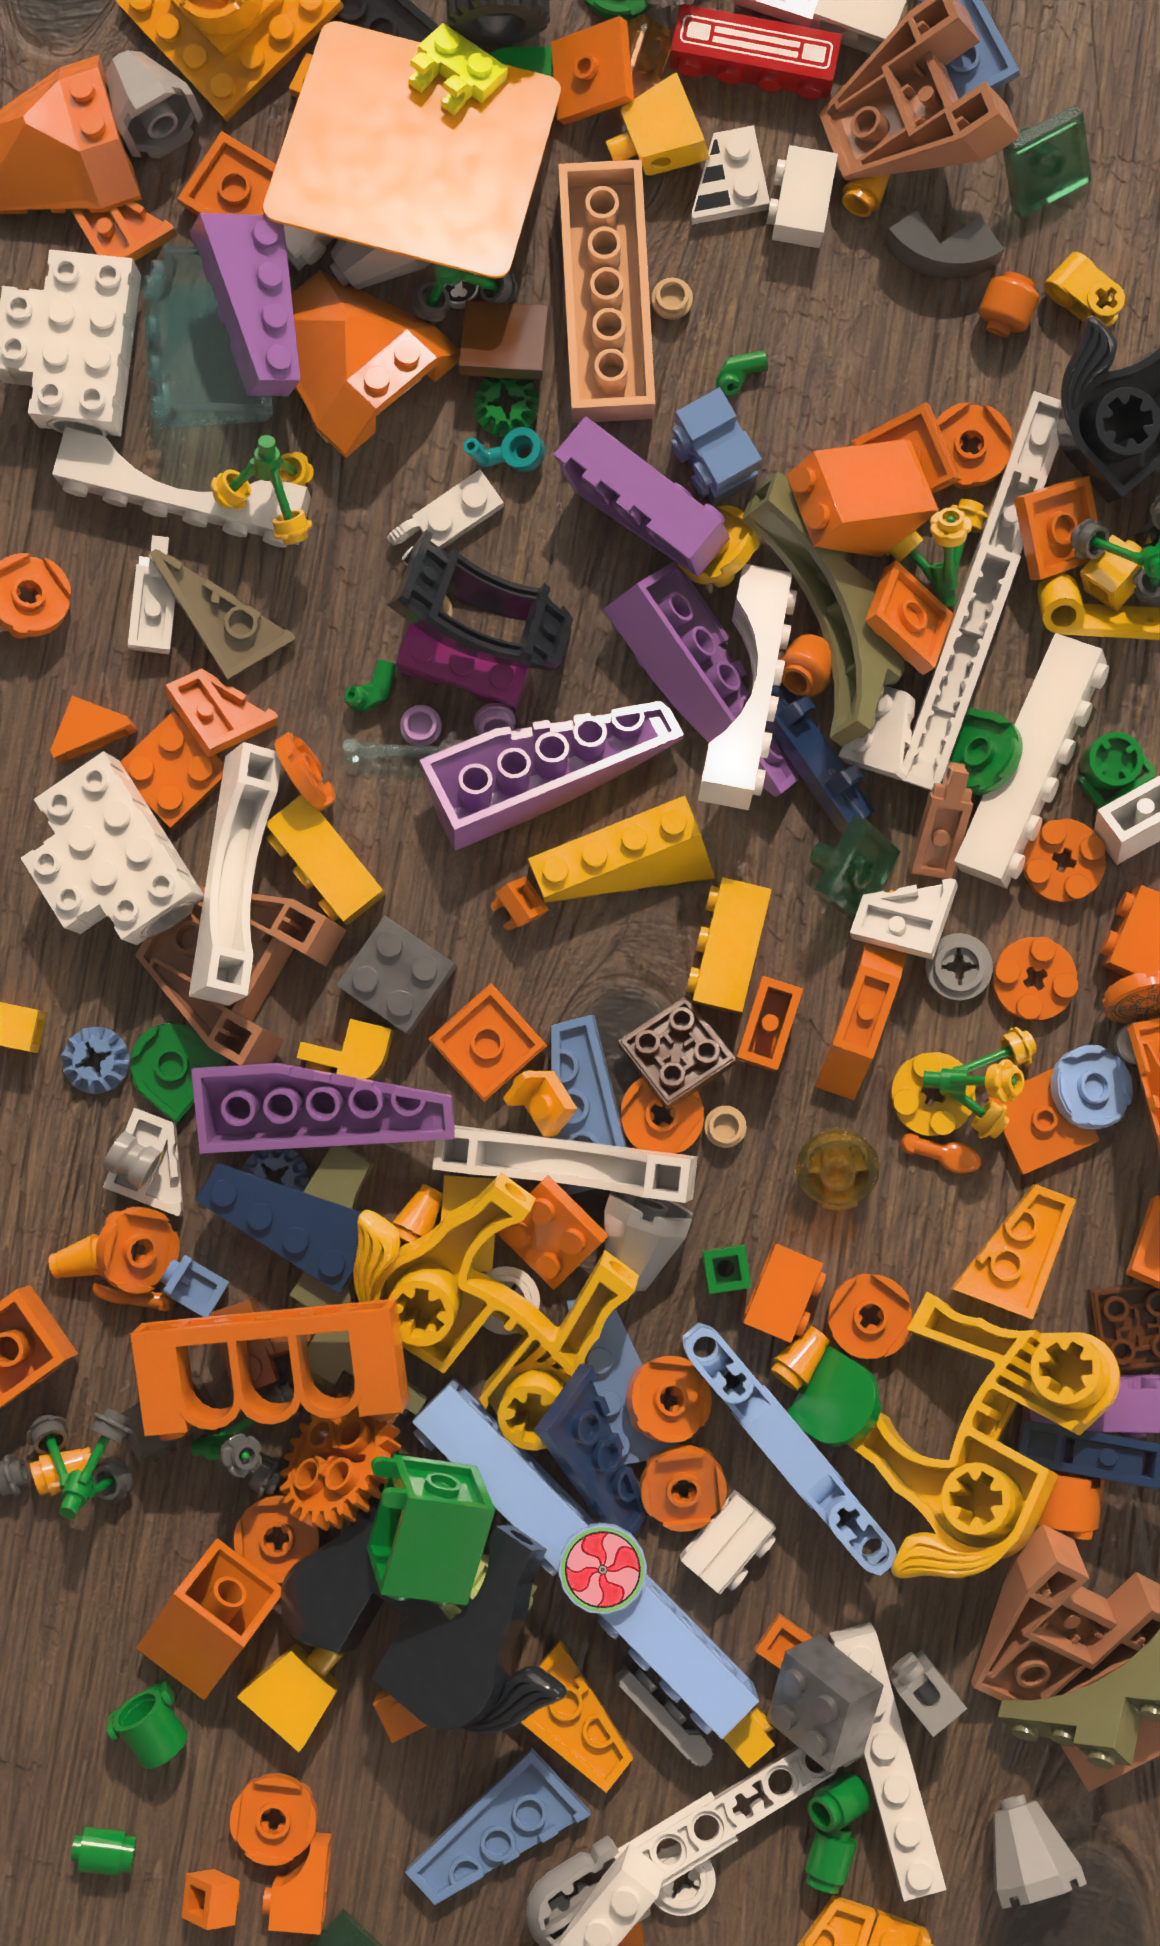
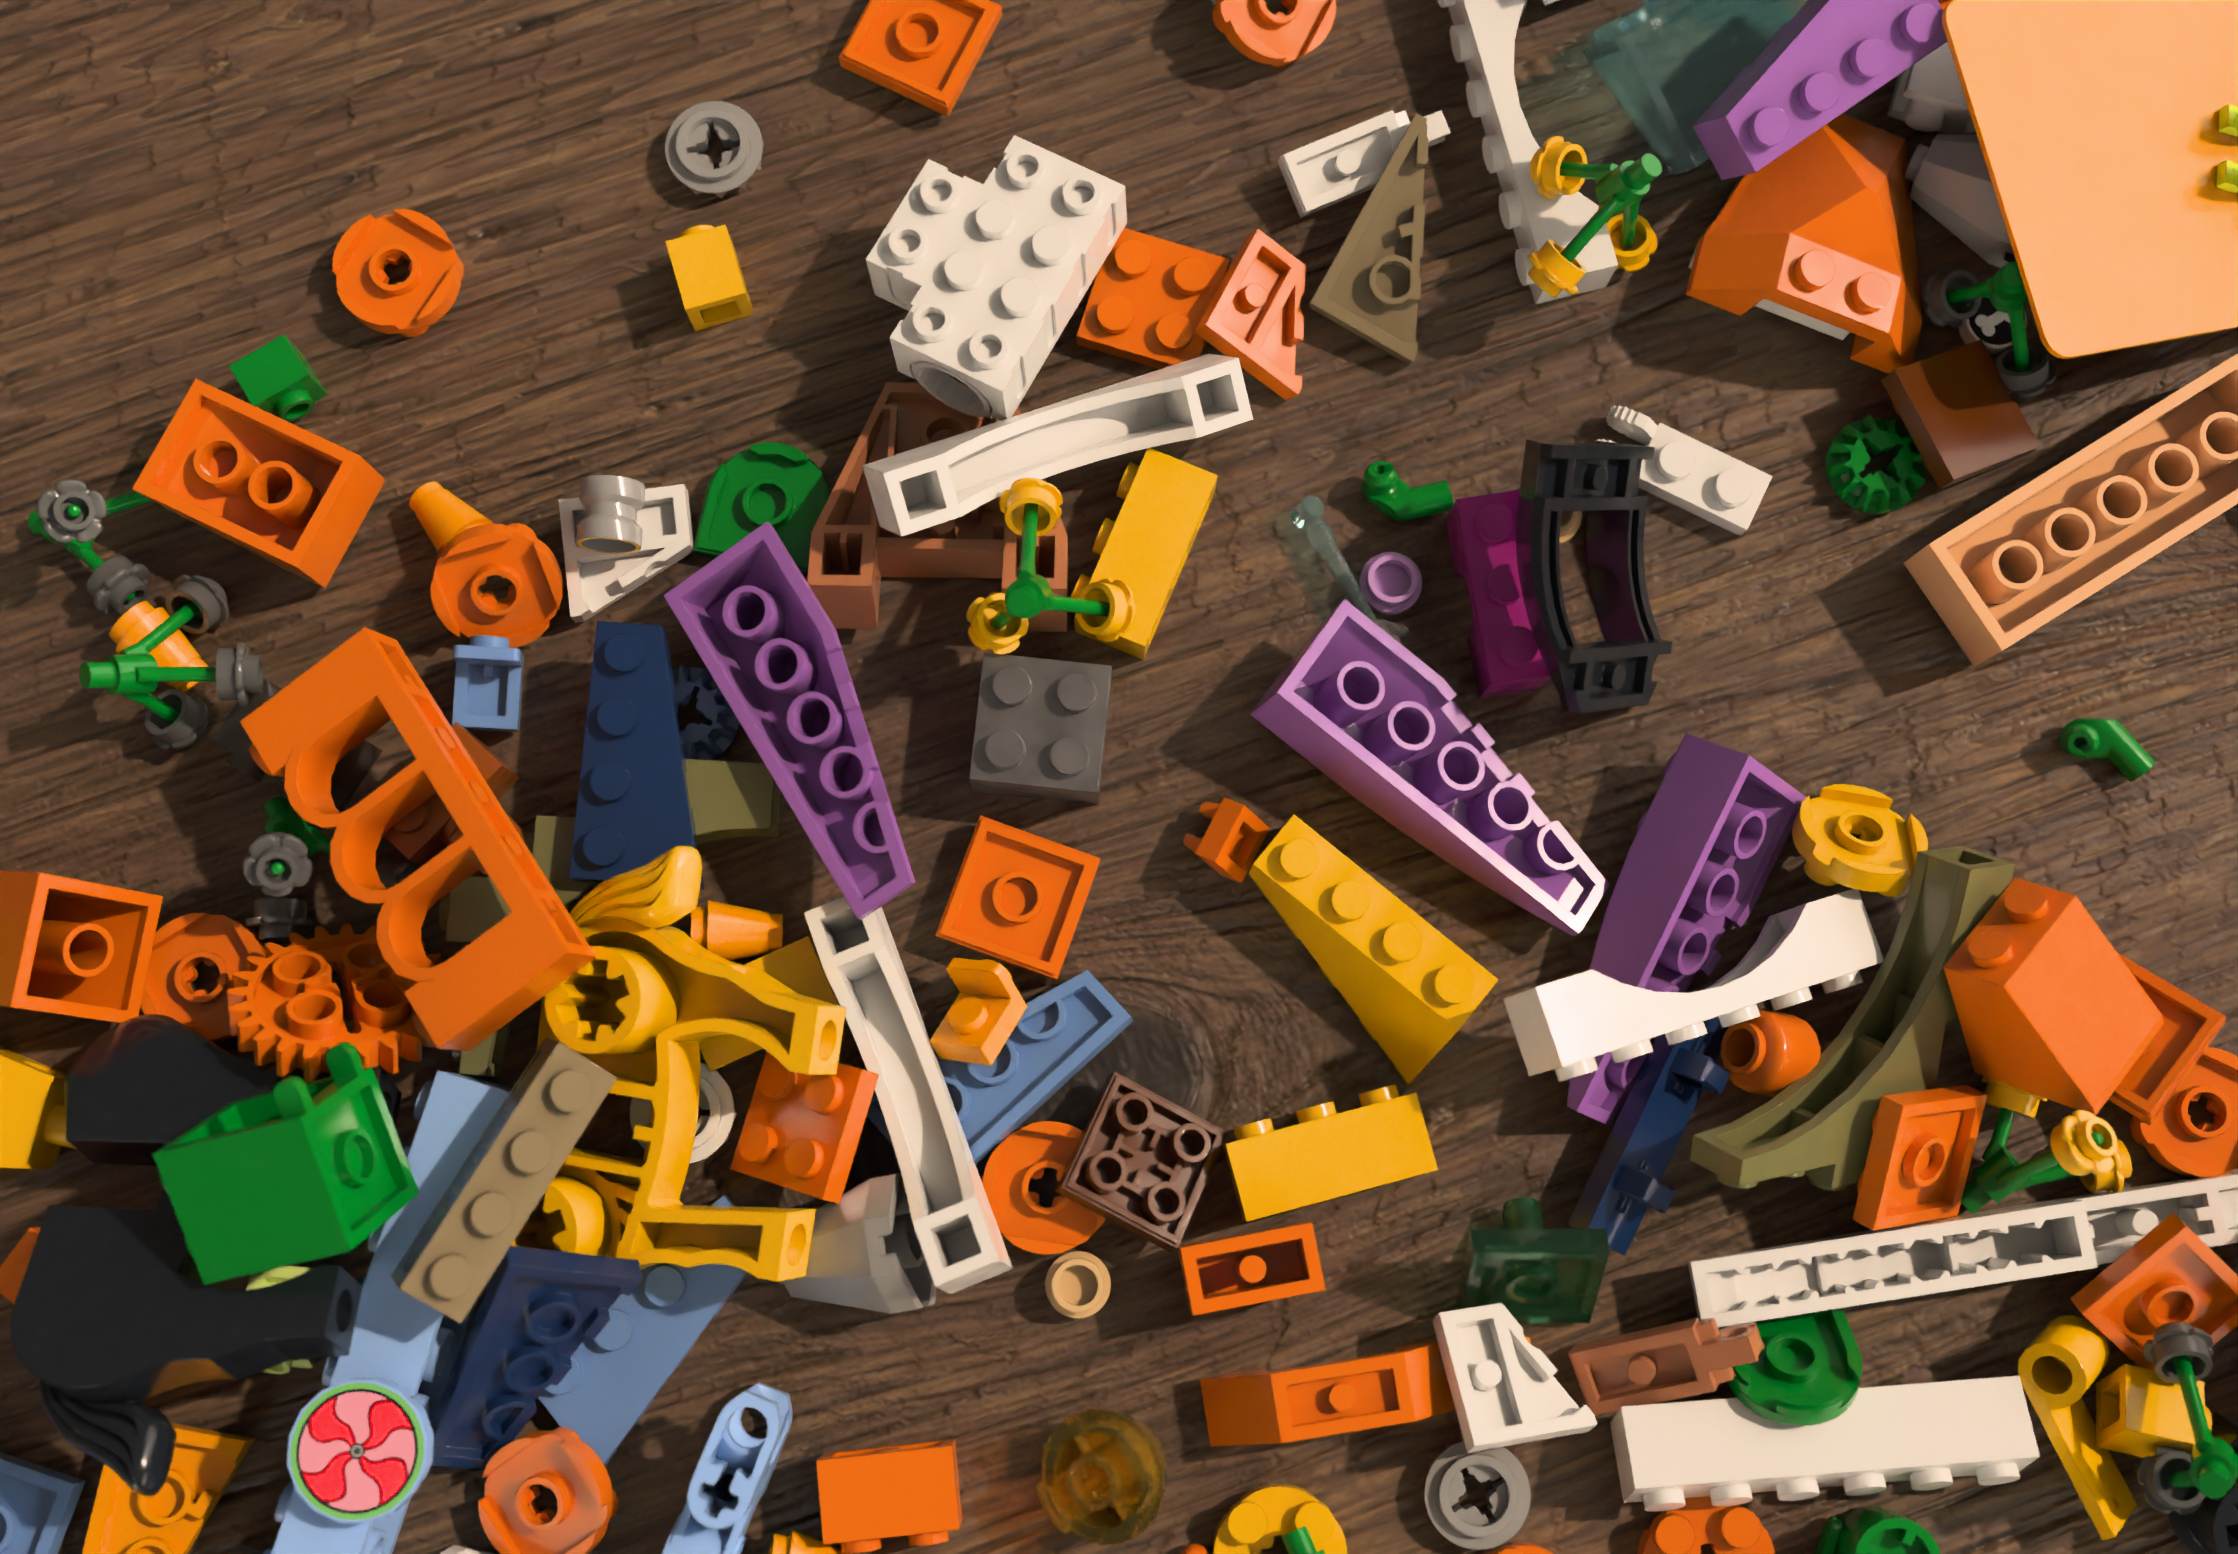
camera: 55 degrees right, 5 degrees down
(88, 729) = (1148, 164): orange slope -> none
(112, 1068) = (723, 431): medium blue gear -> none
(151, 1299) = (440, 637): orange piece -> none
(304, 771) = (1245, 461): orange tile -> none
(323, 964) = (1001, 618): none -> yellow plant
(362, 1054) = (908, 740): yellow brick -> none
(492, 717) = (1458, 669): lavender plate -> none
(495, 1411) = (502, 1179): none -> dark tan brick
(509, 451) = (1819, 503): teal plate -> none
(641, 497) = (1865, 700): medium lavender wedge -> none
(649, 1414) = (622, 1395): orange plate -> none
(672, 298) = (2147, 603): tan plate -> none
(715, 447) = (1990, 764): medium blue brick -> none
(737, 1279) = (874, 1417): green plate -> none
(884, 745) = (1729, 1218): white wing -> none

